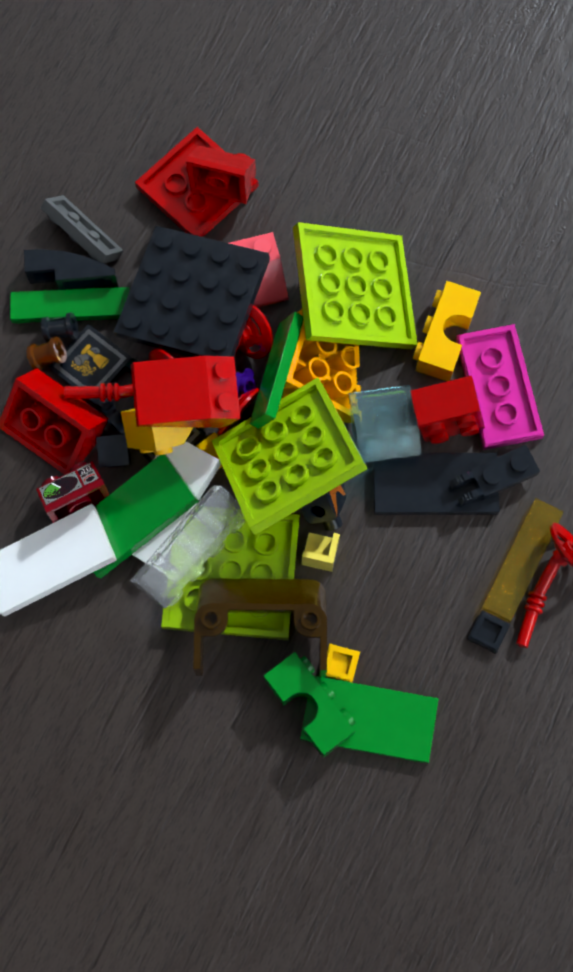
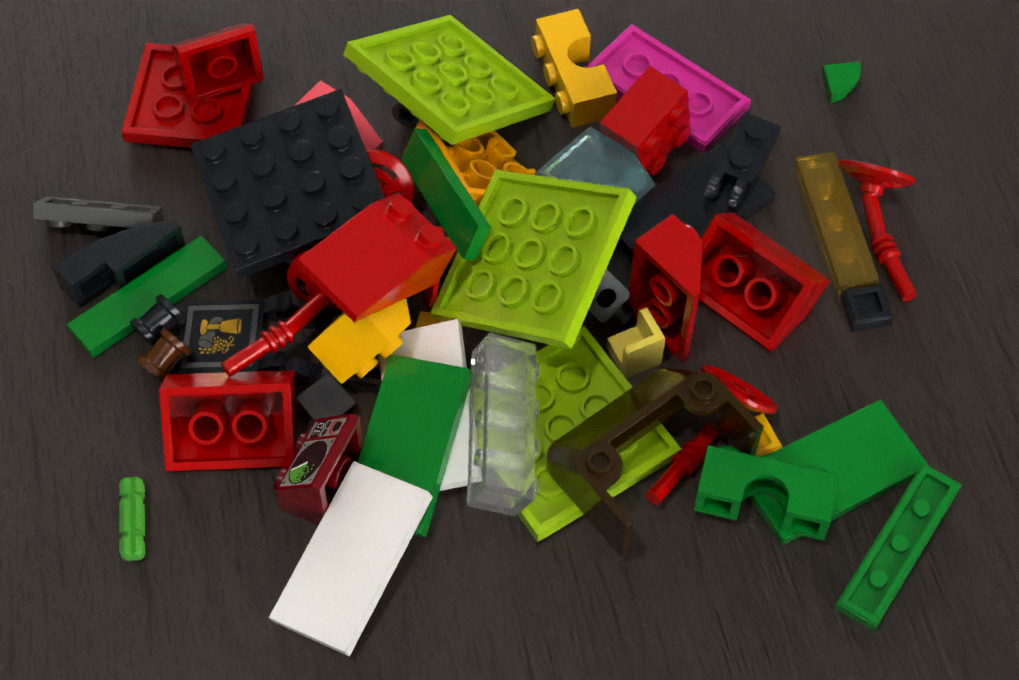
camera: 40 degrees left, 15 degrees down
(341, 632) = (694, 451): none -> red dish
(364, 528) = (668, 281): none -> red slope
(364, 796) = (898, 547): none -> green tile
(430, 560) = (756, 280): none -> red slope

